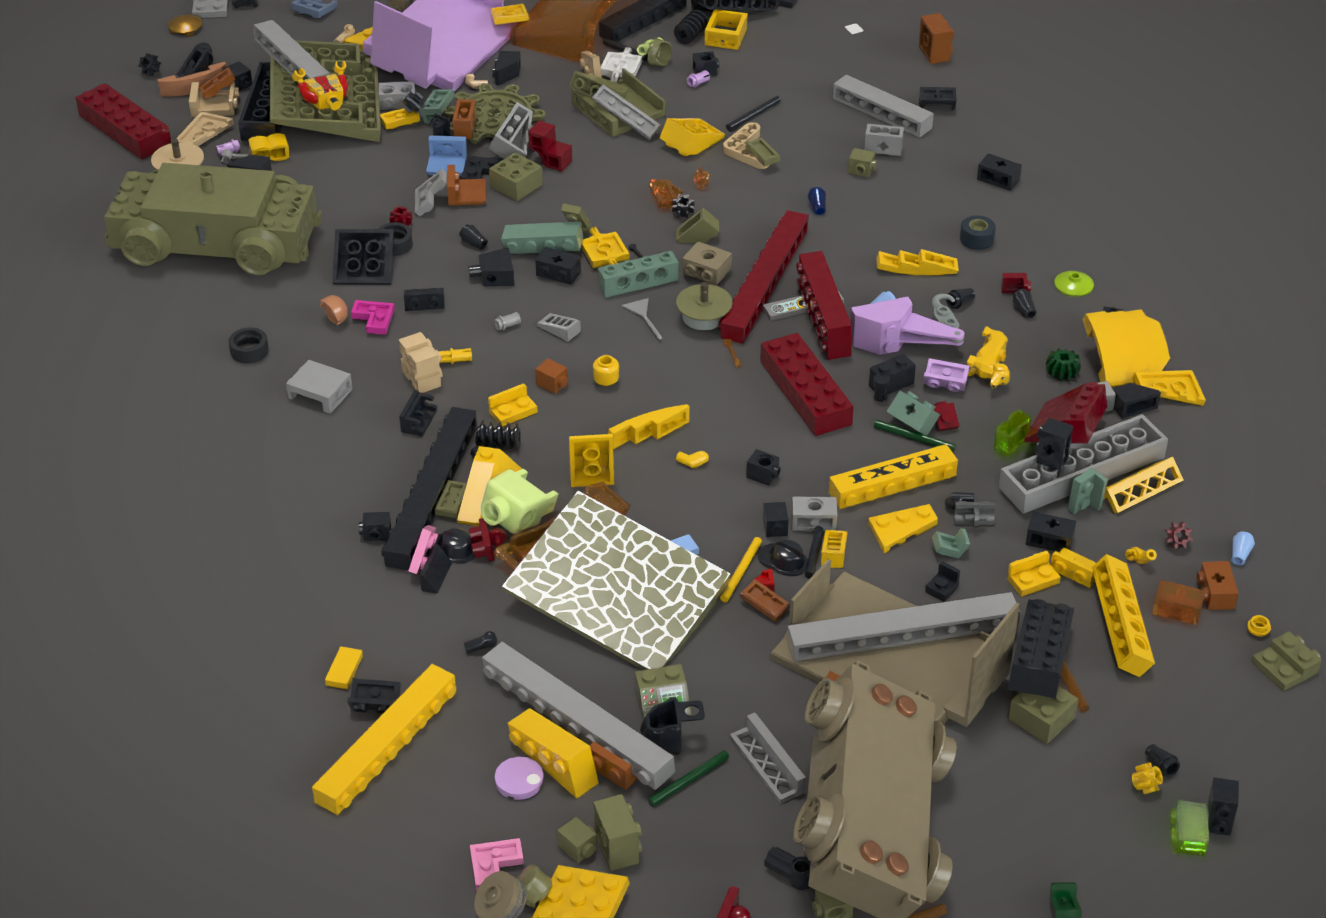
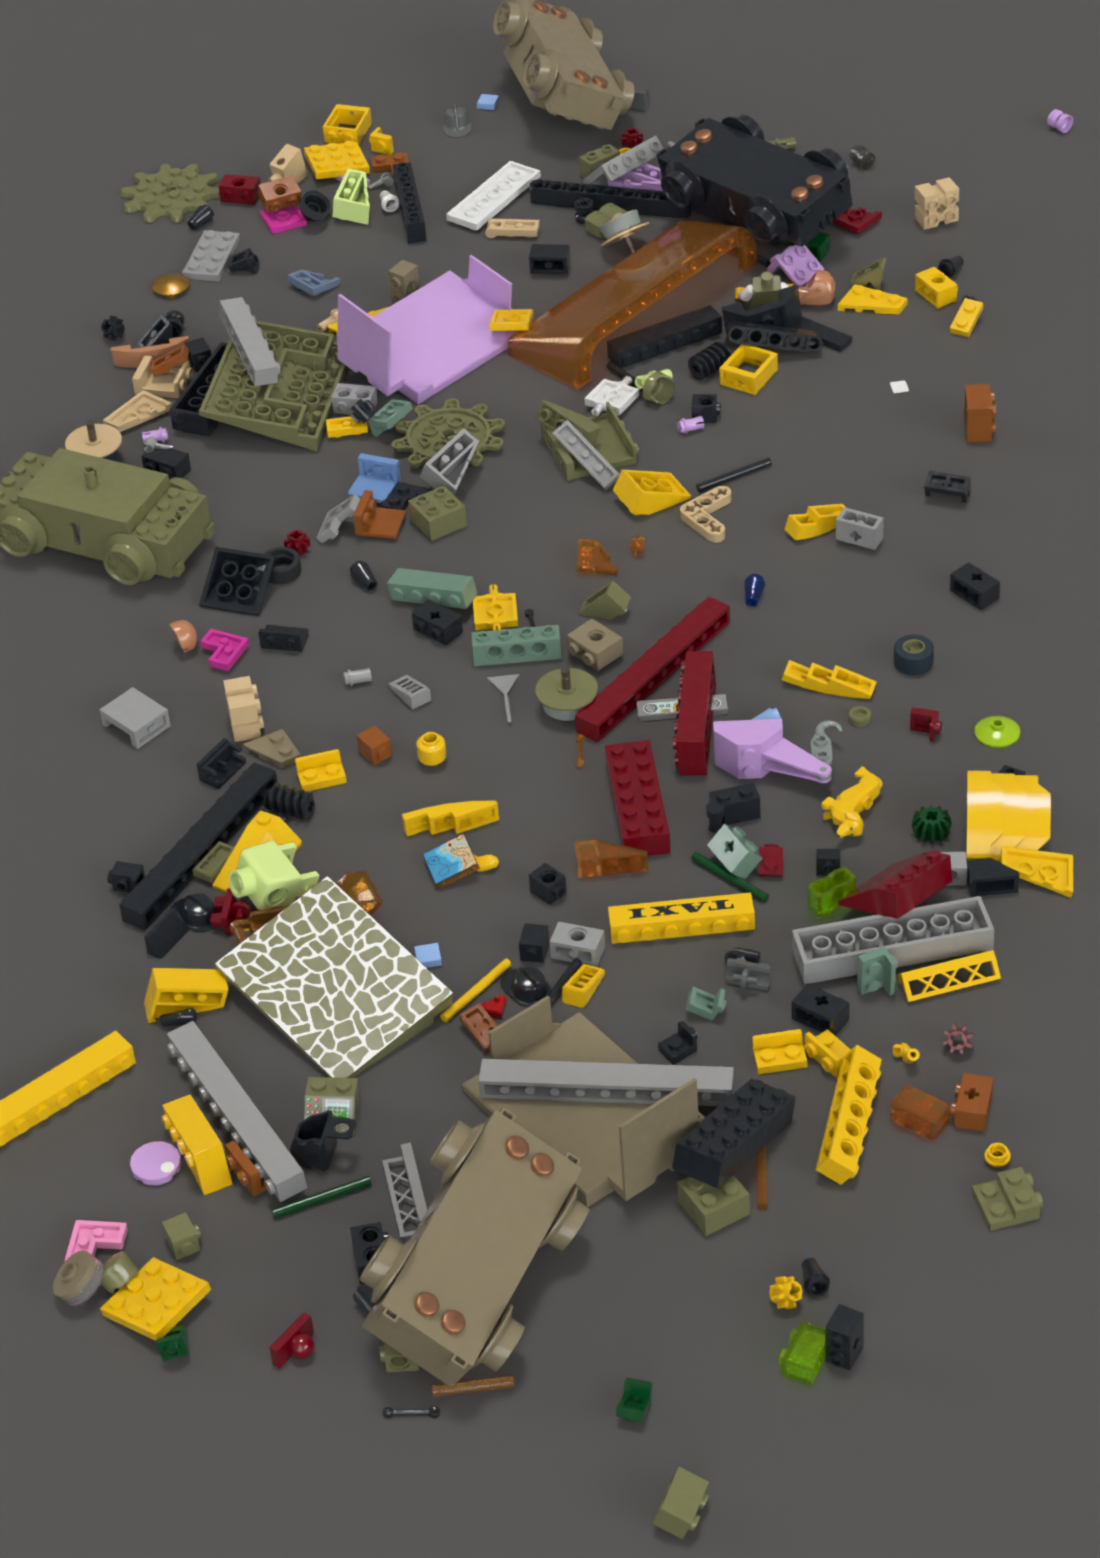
camera: 20 degrees right, 0 degrees up
(123, 120) = (59, 389): dark red brick -> none
(248, 335) = (88, 670): black tyre -> none
(273, 146) = (196, 442): yellow brick -> none
(324, 90) = (267, 386): torso -> none
(343, 667) = (36, 1018): yellow tile -> none
(373, 695) = (49, 1050): black bracket -> none
(426, 541) = (162, 902): bright pink plate -> none
(441, 125) = (376, 444): black hinge -> none
(456, 355) = (283, 706): yellow axle -> none
(461, 393) = (274, 748): none -> dark tan wing
(464, 118) = (406, 439): dark orange brick -> none
(473, 83) = (442, 395): tan arm -> none
(476, 615) = (178, 989): none -> yellow wedge
(494, 268) = (369, 615): black torso -> none
(506, 66) = (486, 382): black slope -> none
(543, 141) = (480, 475): dark red brick -> none
(576, 214) = (471, 568): olive plate -> none
(590, 64) = (573, 394): tan wing -> none
(591, 460) = (366, 845): yellow slope -> none
(617, 832) = (218, 1236): olive brick -> none
(667, 462) = (451, 861): none -> tile
(683, 205) = (597, 569): black gear -> none
(761, 819) = (365, 1242): none -> black brick
(762, 151) = (717, 523): olive tile -> none
(801, 437) = (607, 858): none -> clear orange slope
(842, 139) = (814, 523): none -> yellow slope
(862, 162) = (823, 551): olive brick -> none
(883, 105) = (881, 487): light grey brick -> none
(897, 526) = (664, 972): yellow wing -> none
(946, 375) = (795, 814): lavender bracket -> none
(955, 284) = (859, 716): none -> olive tile
(961, 297) = (856, 727): black cone -> none
(992, 409) = (827, 861): none -> black bracket
(1024, 302) = (925, 744): black cone -> none
(1054, 444) = (852, 913): black brick -> none
(1241, 547) = (1024, 1064): light blue cone -> none

